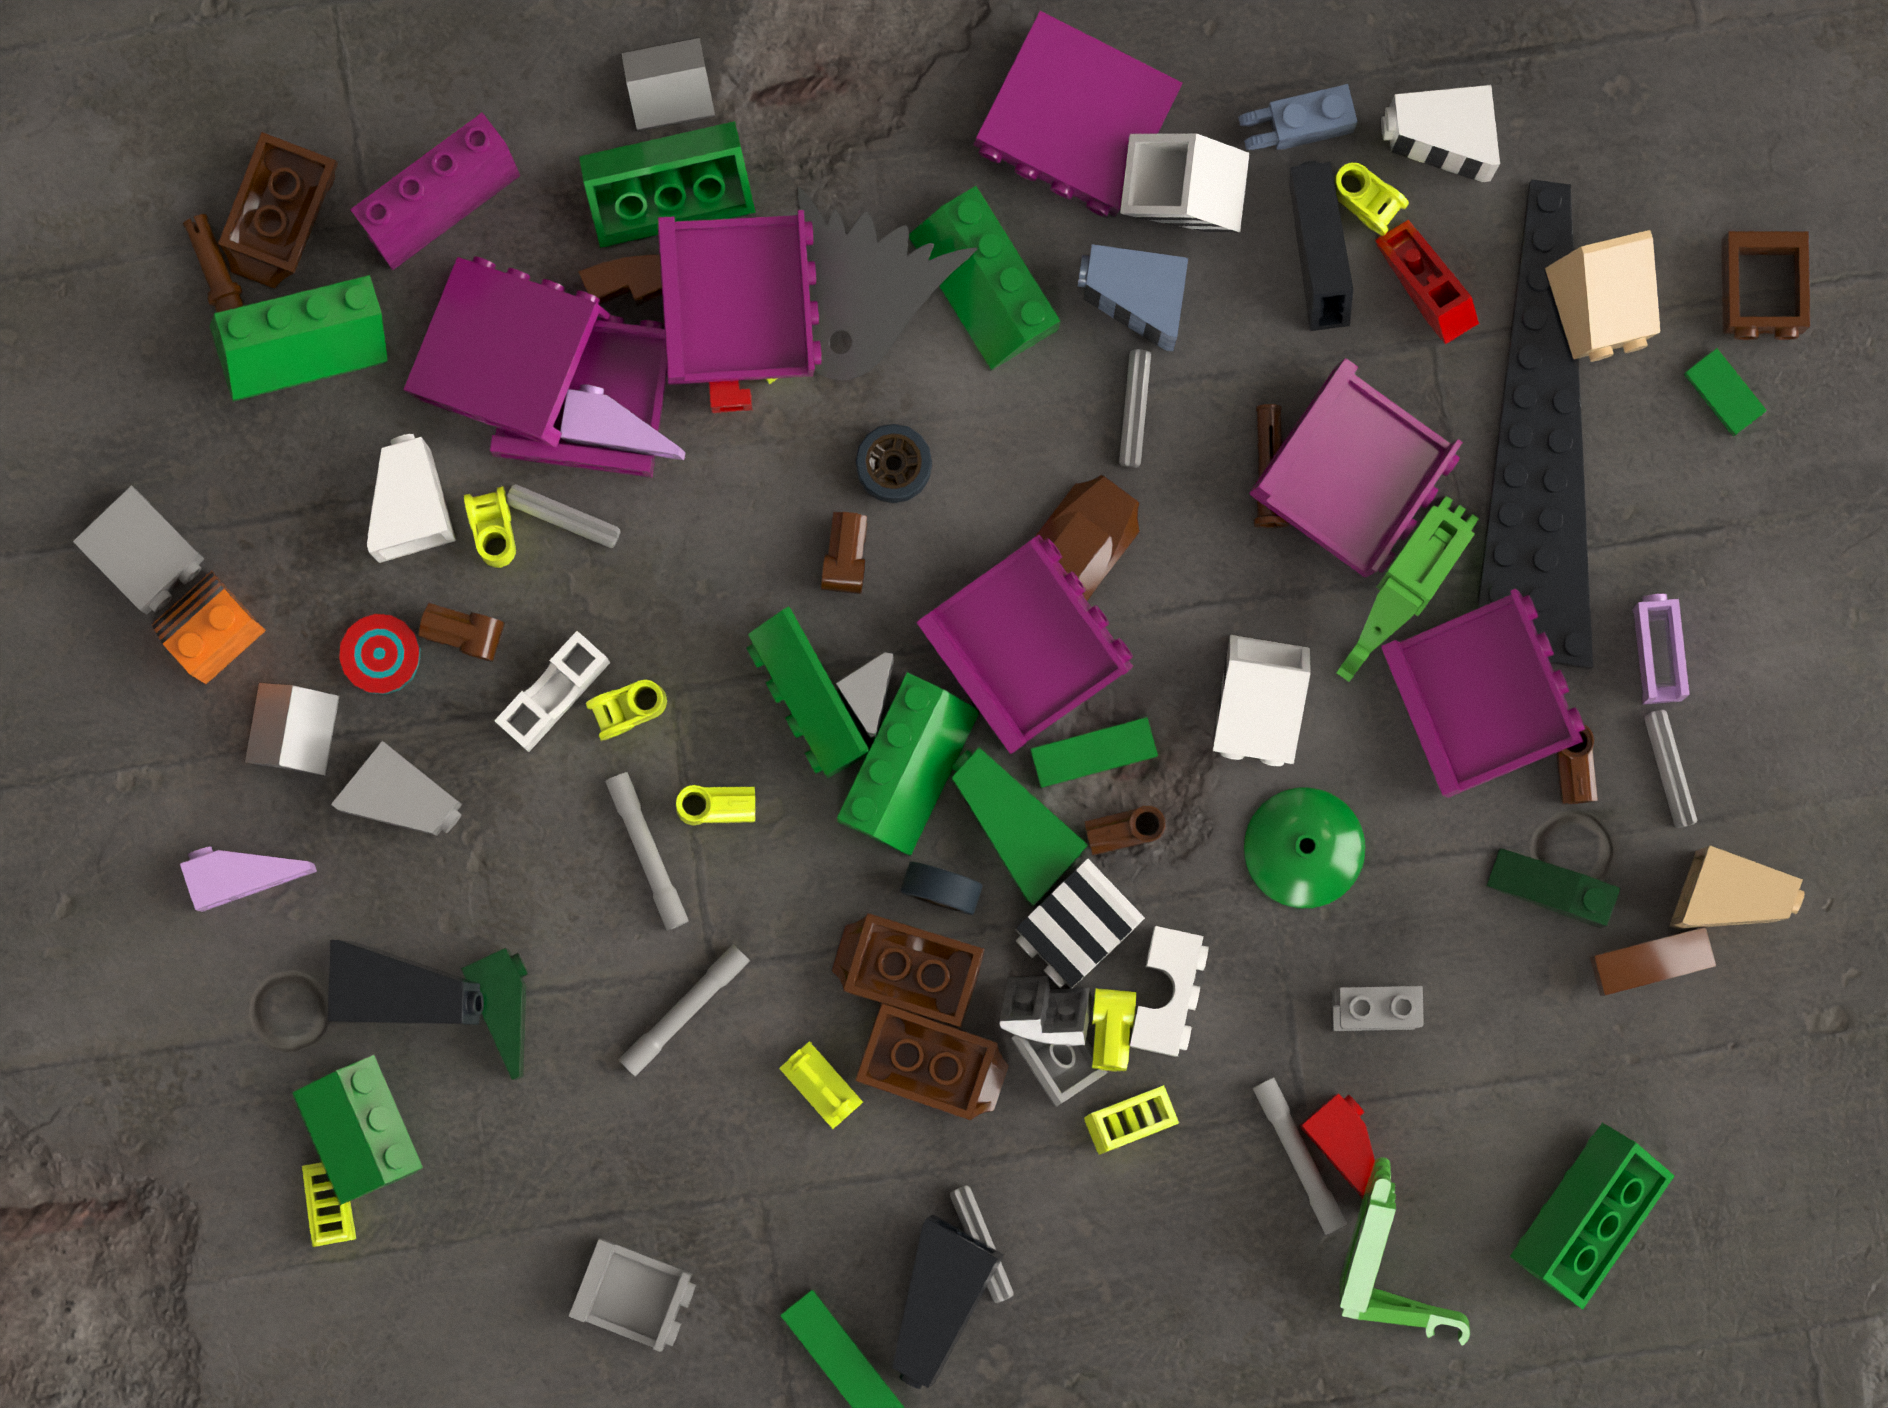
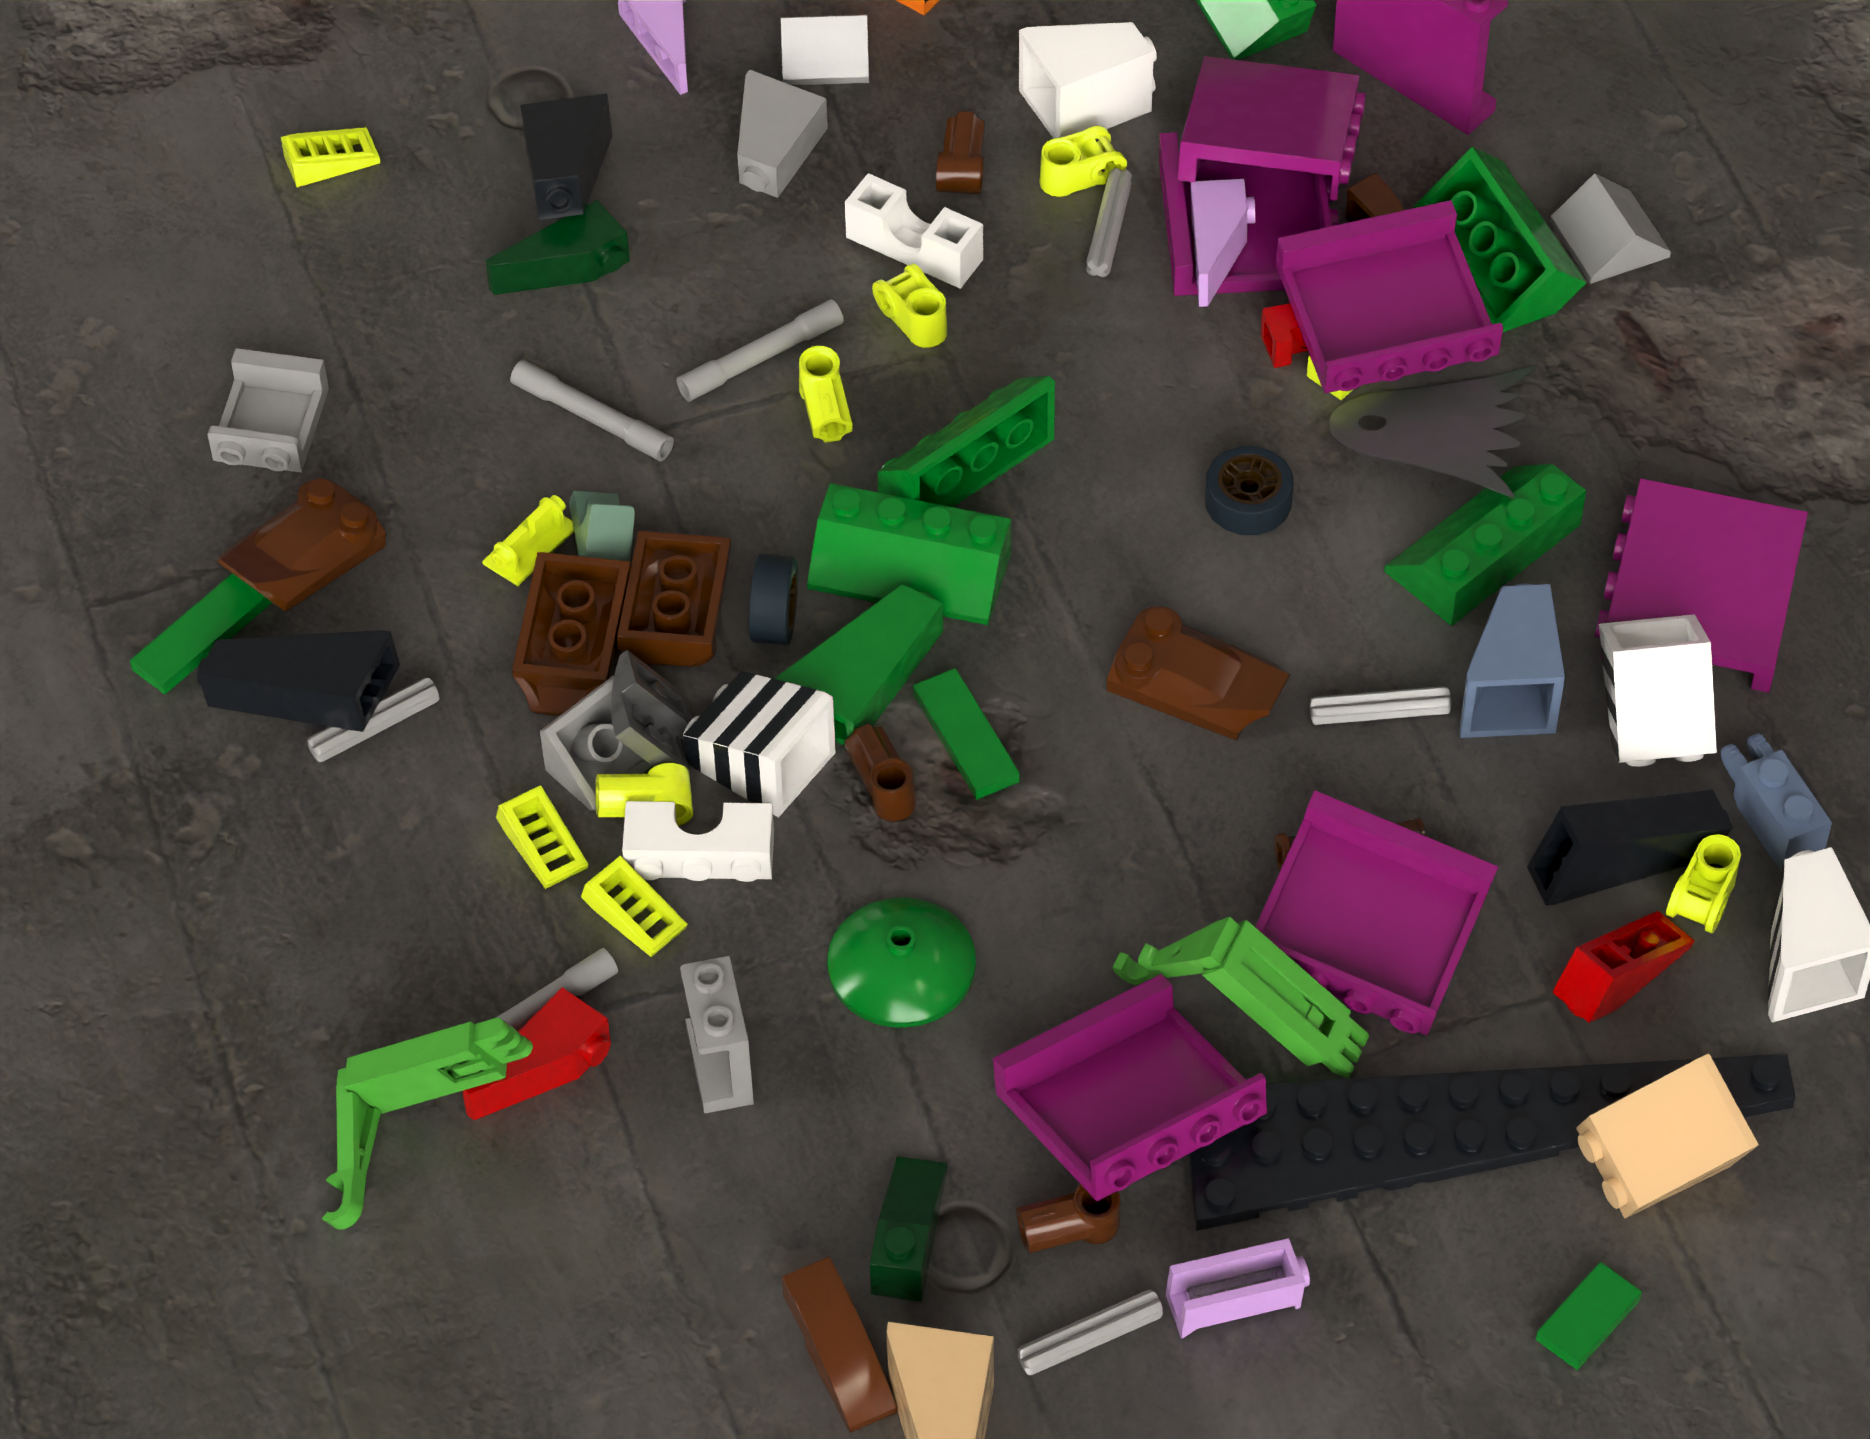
camera: 80 degrees right, 30 degrees down
(357, 1130) = (412, 156): green slope -> none
(380, 654) = (920, 100): red tile -> none
(795, 1285) = (306, 544): none -> reddish brown slope
(827, 1023) = (602, 525): none -> sand green slope
(845, 562) = (1121, 464): reddish brown piece -> none
(867, 691) = (982, 482): light grey slope -> none
(1026, 643) = (1069, 626): magenta panel -> none
(1186, 1073) = (622, 874): none -> neon yellow slope
(1261, 700) = (1067, 872): white slope -> none
(1592, 1215) = (503, 1331): green slope -> none
(1765, 243) = (1707, 1378): reddish brown window -> none

